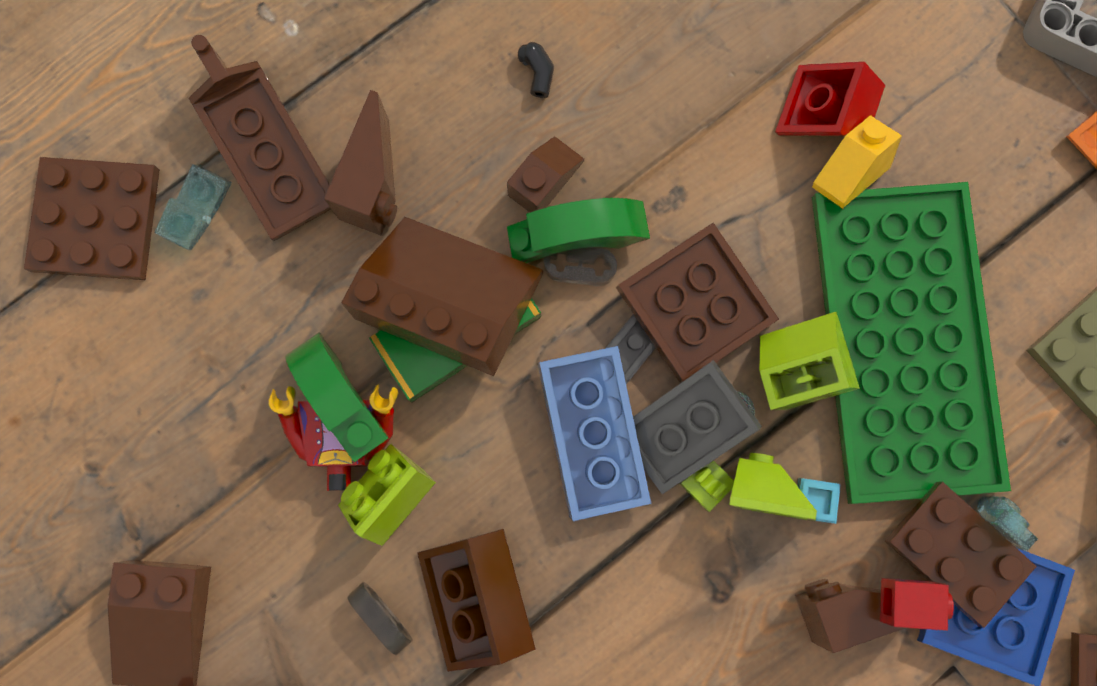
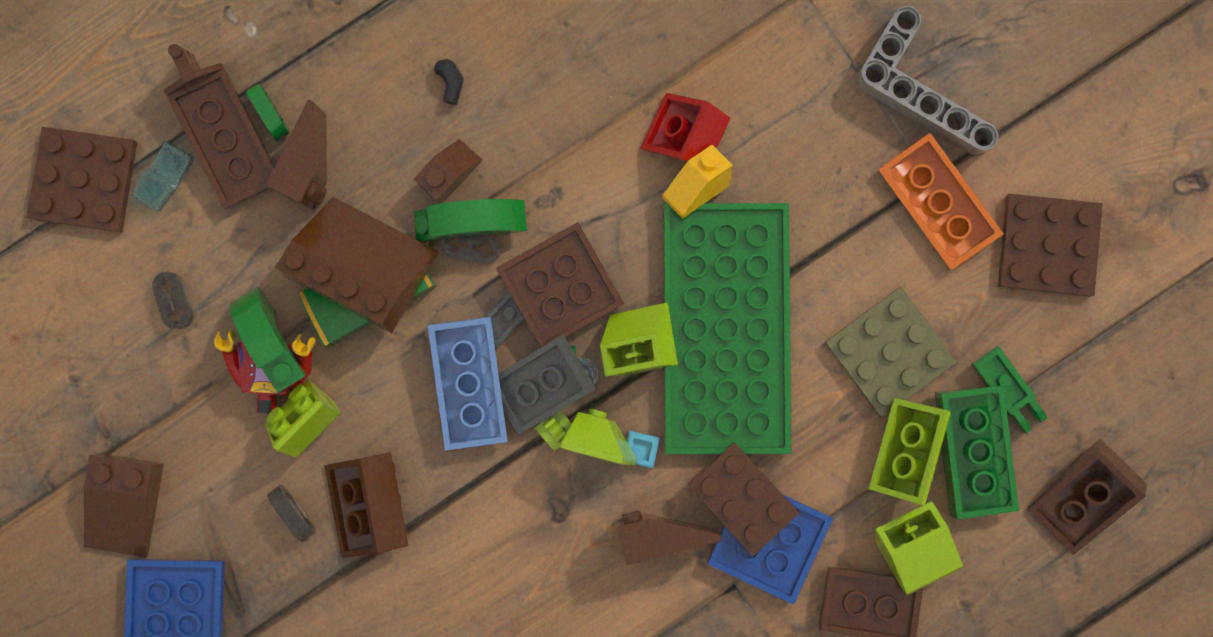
camera: 10 degrees right, 5 degrees up
(204, 361) = (165, 302): none -> clear smoke beam
(318, 119) = (268, 112): none -> green beam
(915, 604) = (689, 532): red brick -> none
(1006, 519) = (780, 476): clear light blue slope -> none

